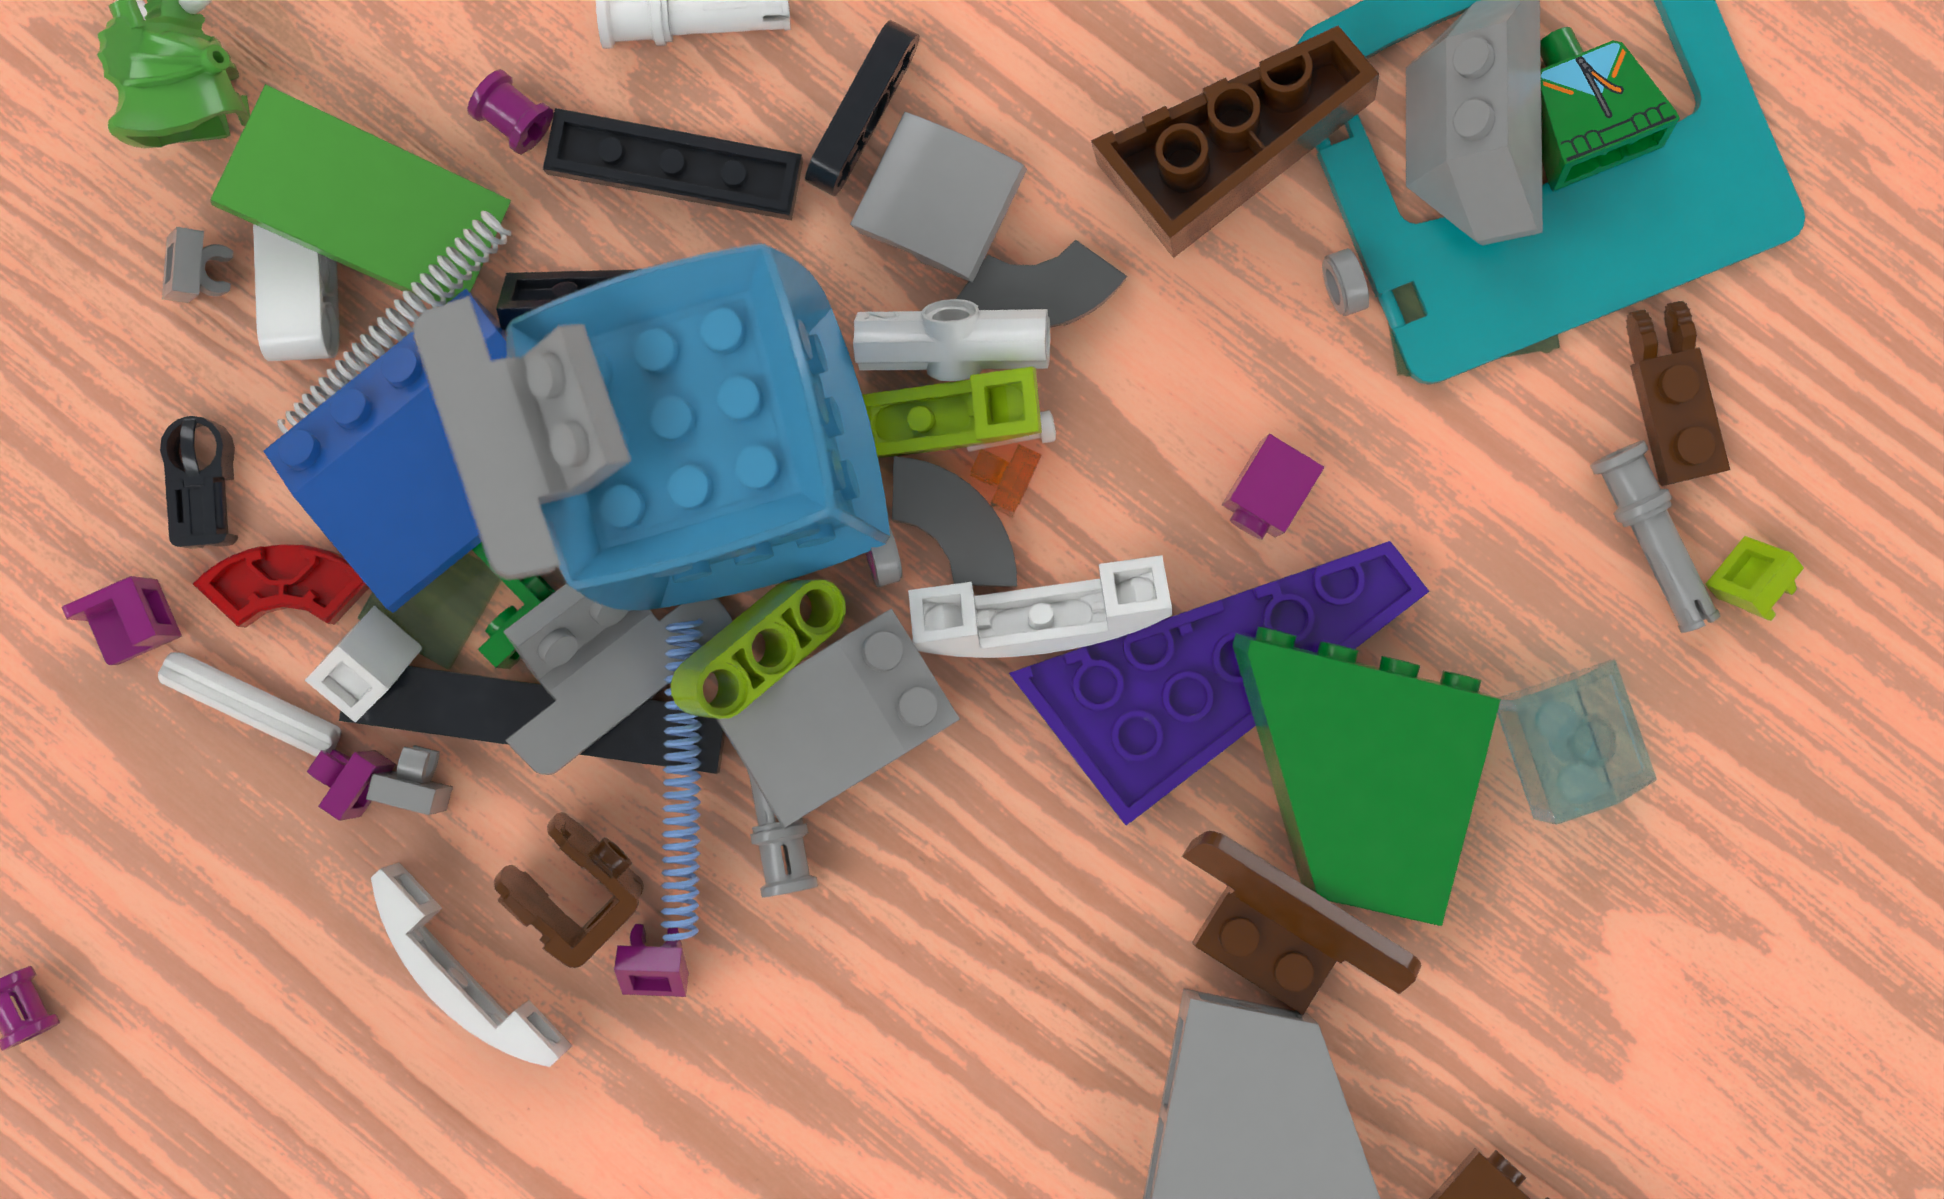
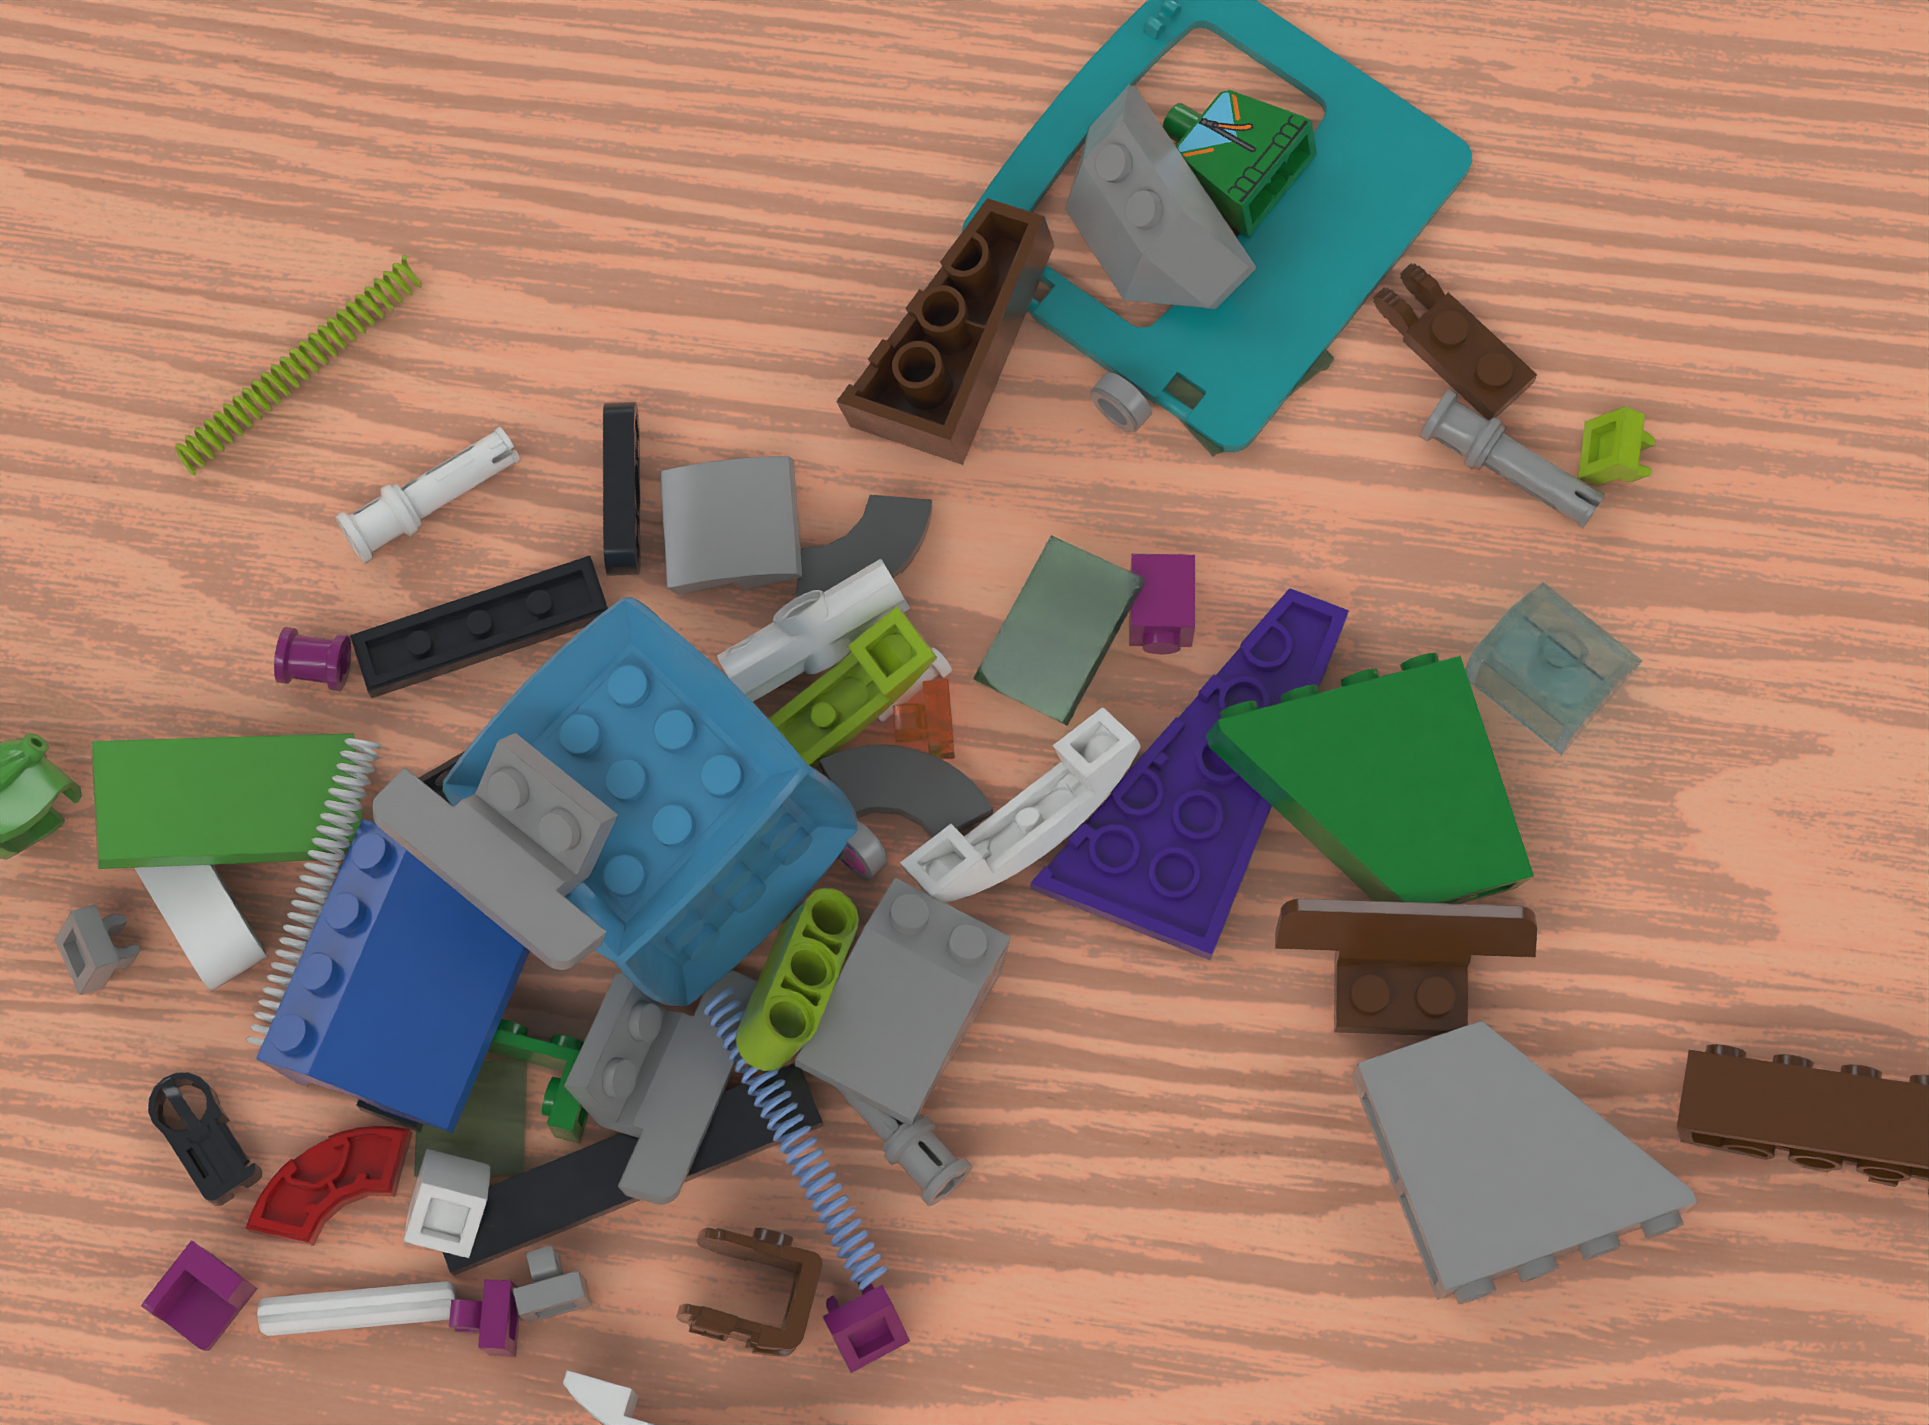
camera: 30 degrees left, 15 degrees down
(1167, 462) = (1059, 630): none -> clear green piece

